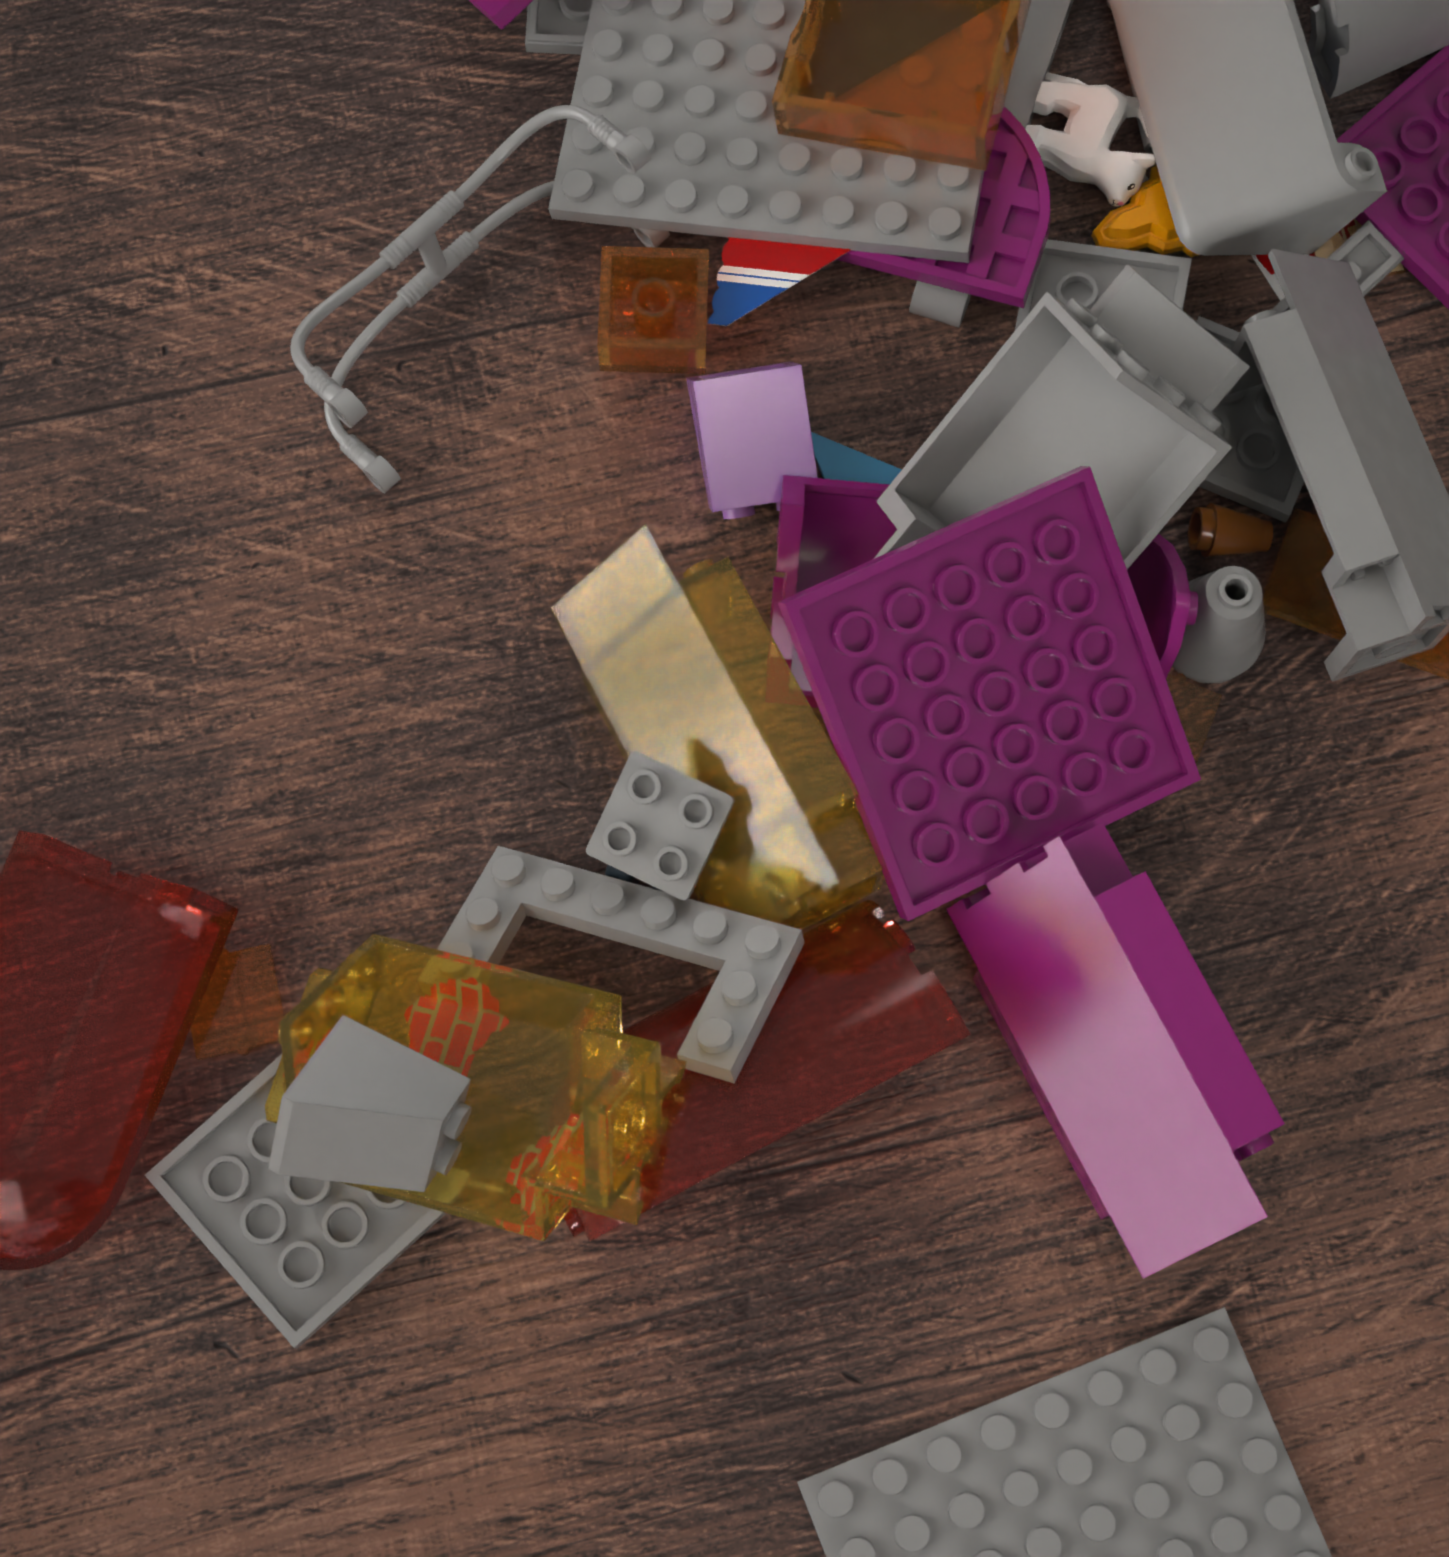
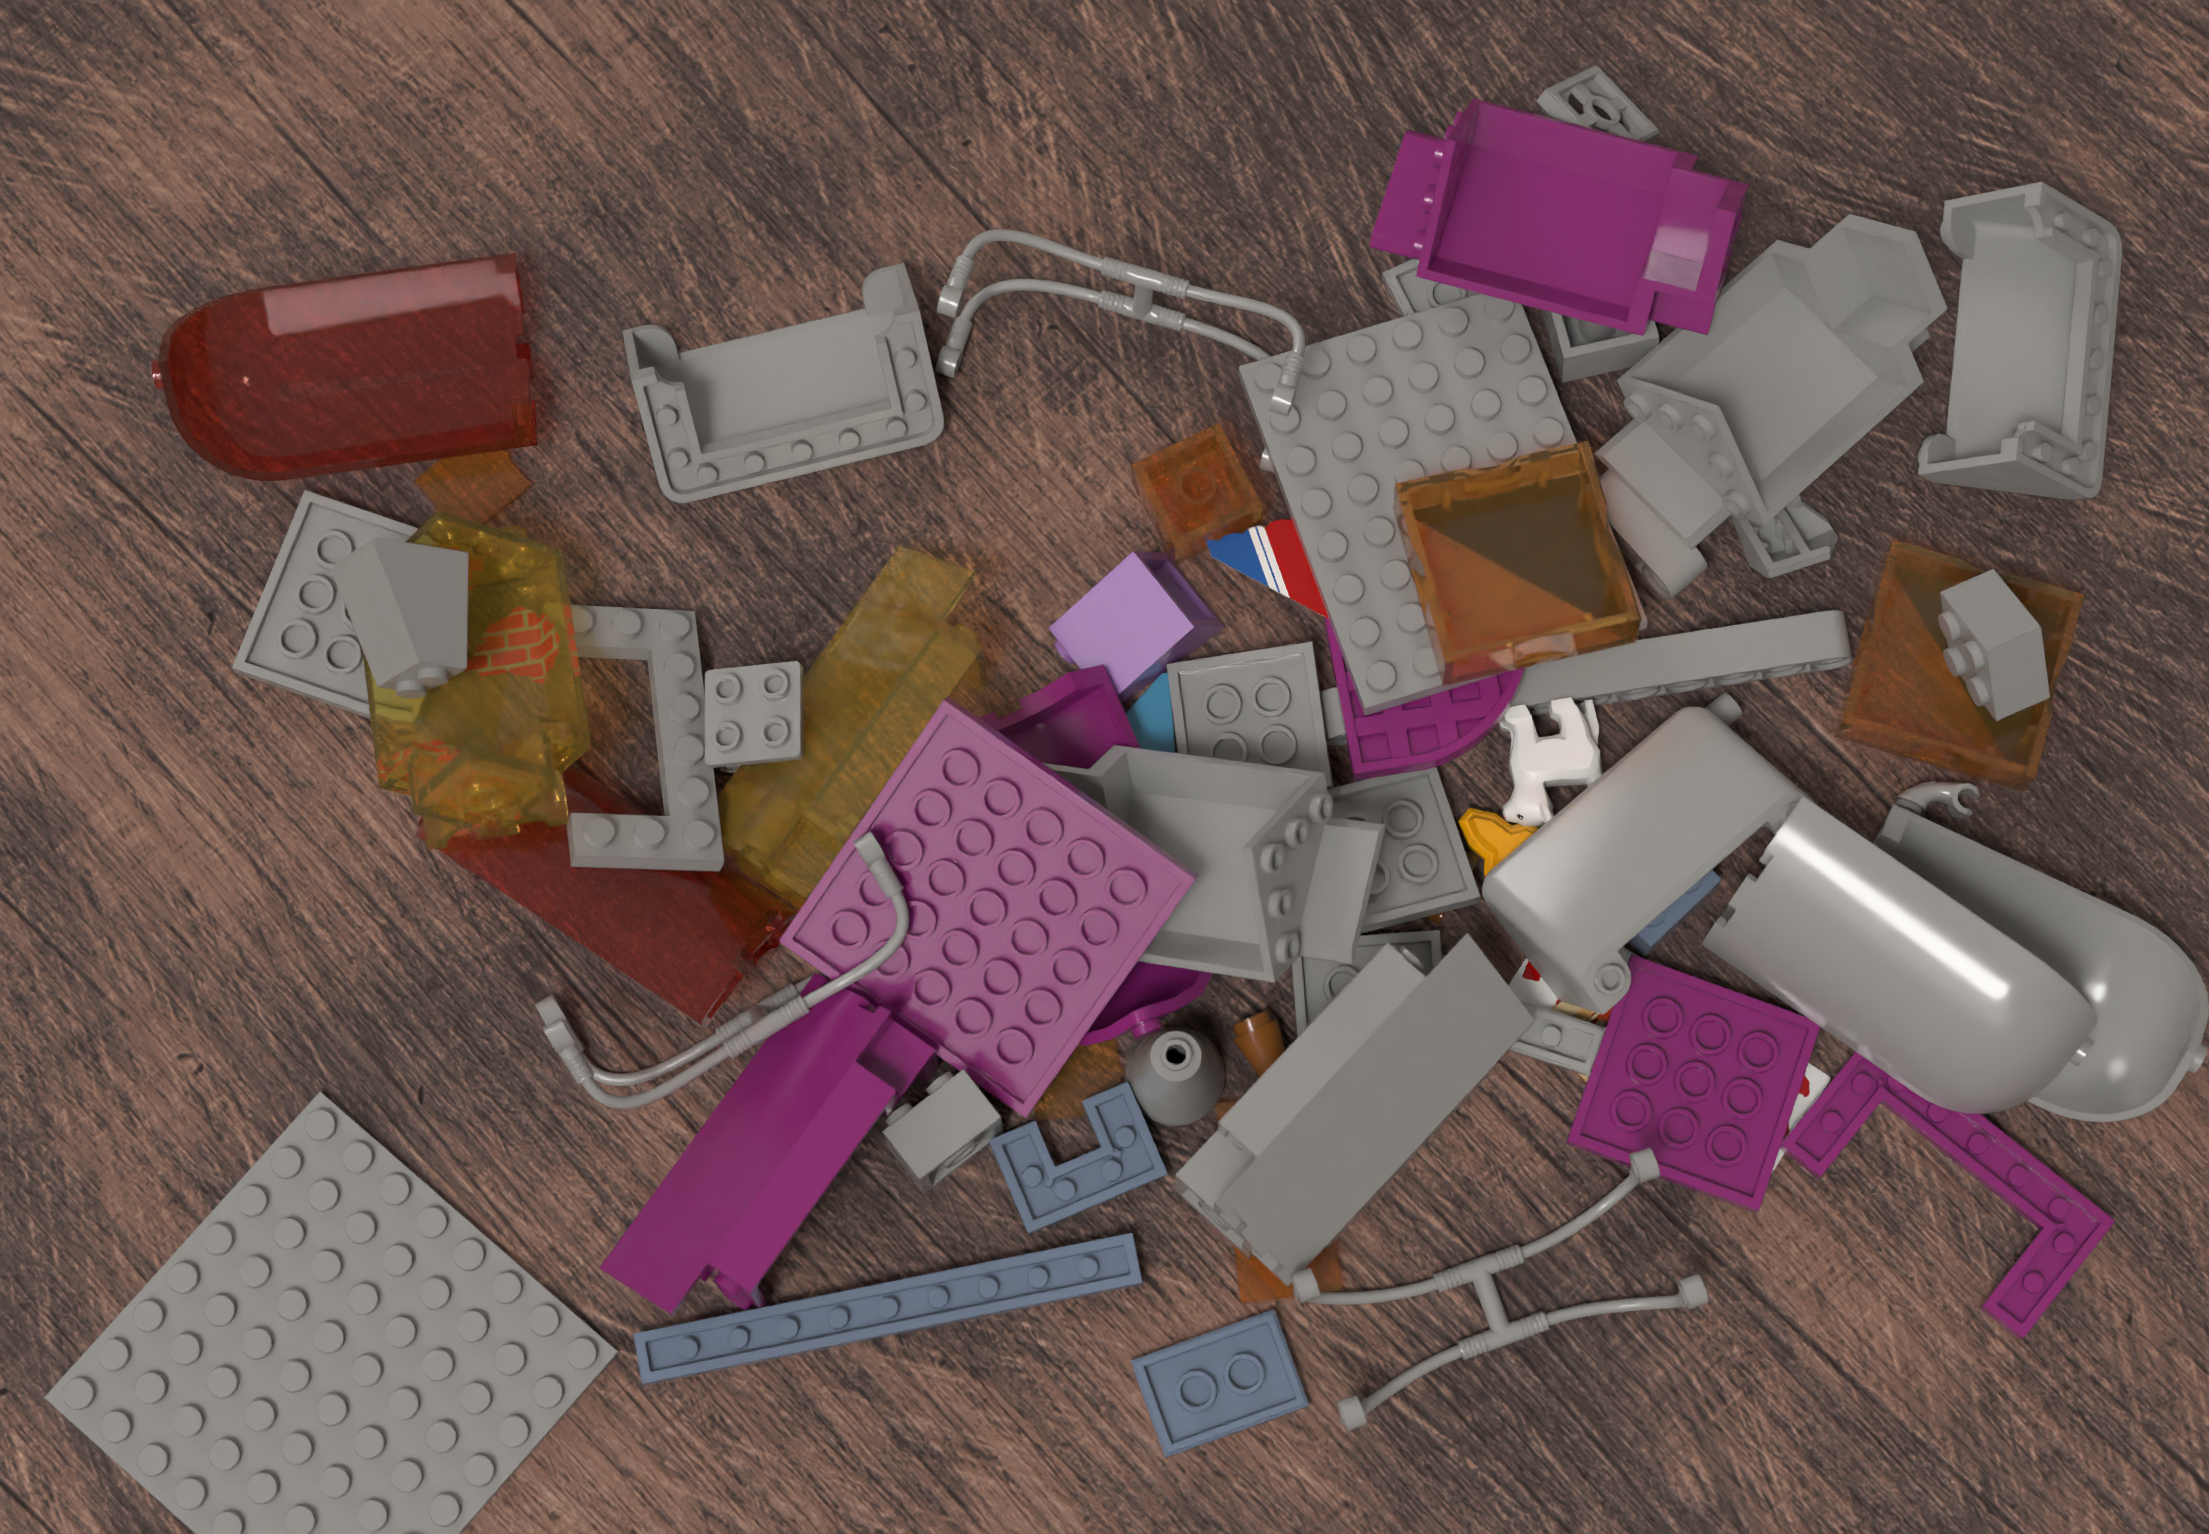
camera: 65 degrees right, 0 degrees up
(327, 636) = (787, 395): none -> light grey windscreen
(899, 371) = (1252, 708): none -> light grey plate
(986, 981) = (741, 1031): none -> light grey bar
(1179, 855) = (942, 1129): none -> light grey brick
(1277, 795) = (1119, 1166): none -> sand blue plate
(1316, 1012) = (887, 1309): none -> sand blue plate

